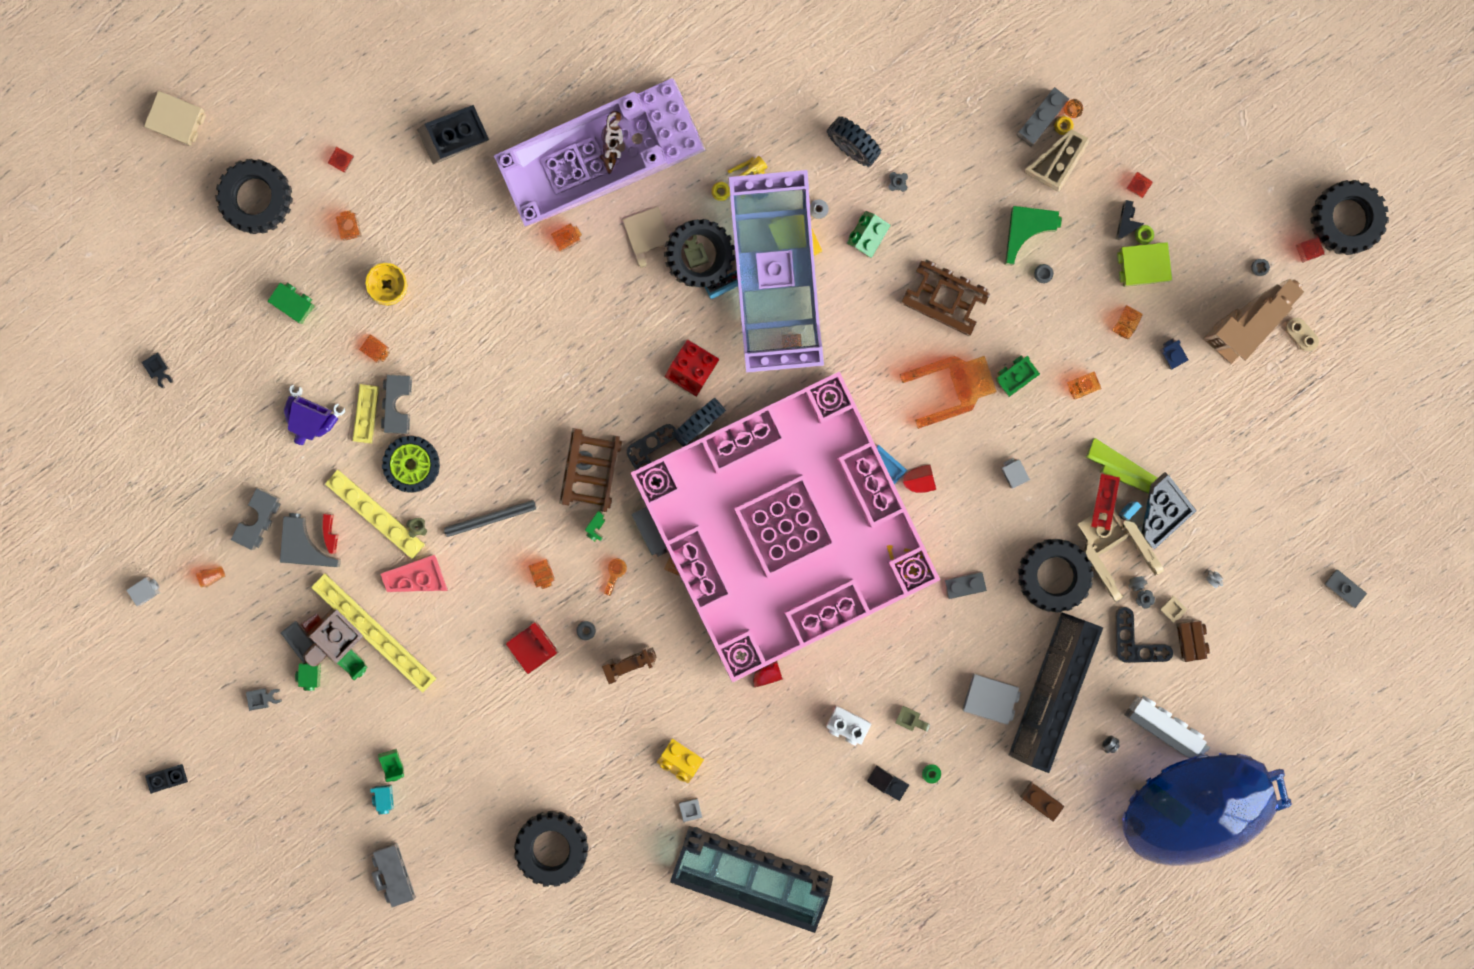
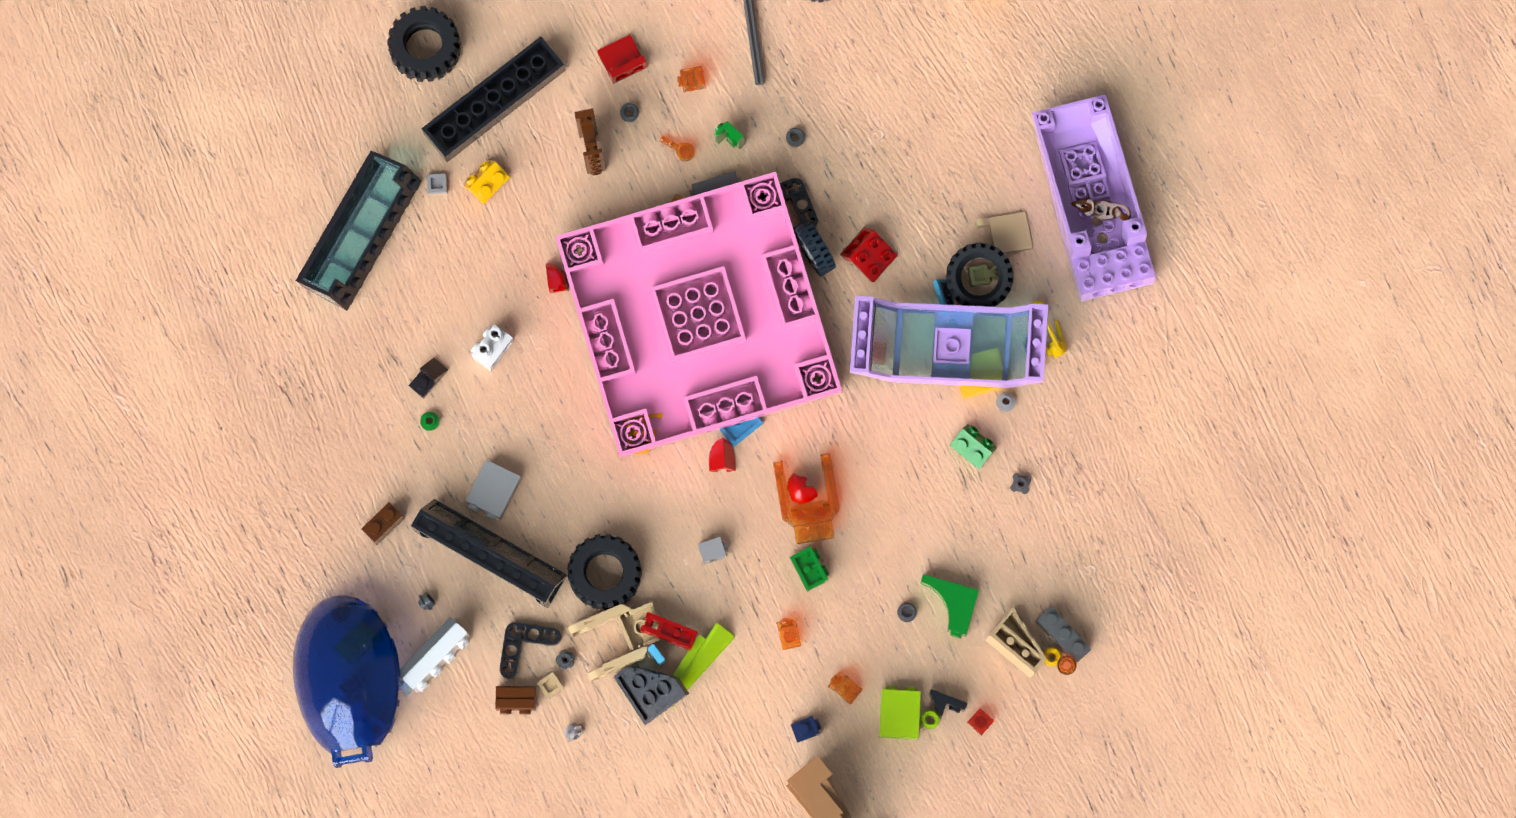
camera: 100 degrees right, 10 degrees down
(452, 134) = (1132, 63): black slope -> none
(566, 237) = (1015, 154): clear orange brick -> none
(575, 458) = (798, 127): reddish brown fence -> none
(596, 768) = (493, 99): none -> black brick
(854, 141) = (1066, 442): black wheel -> none
(909, 719) = (487, 408): olive plate -> none
(938, 312) = (886, 502): reddish brown fence -> none
(943, 398) = (799, 491): none -> red hair
(965, 585) = (609, 485): dark grey plate -> none
(1137, 583) = (582, 654): dark grey plate -> none

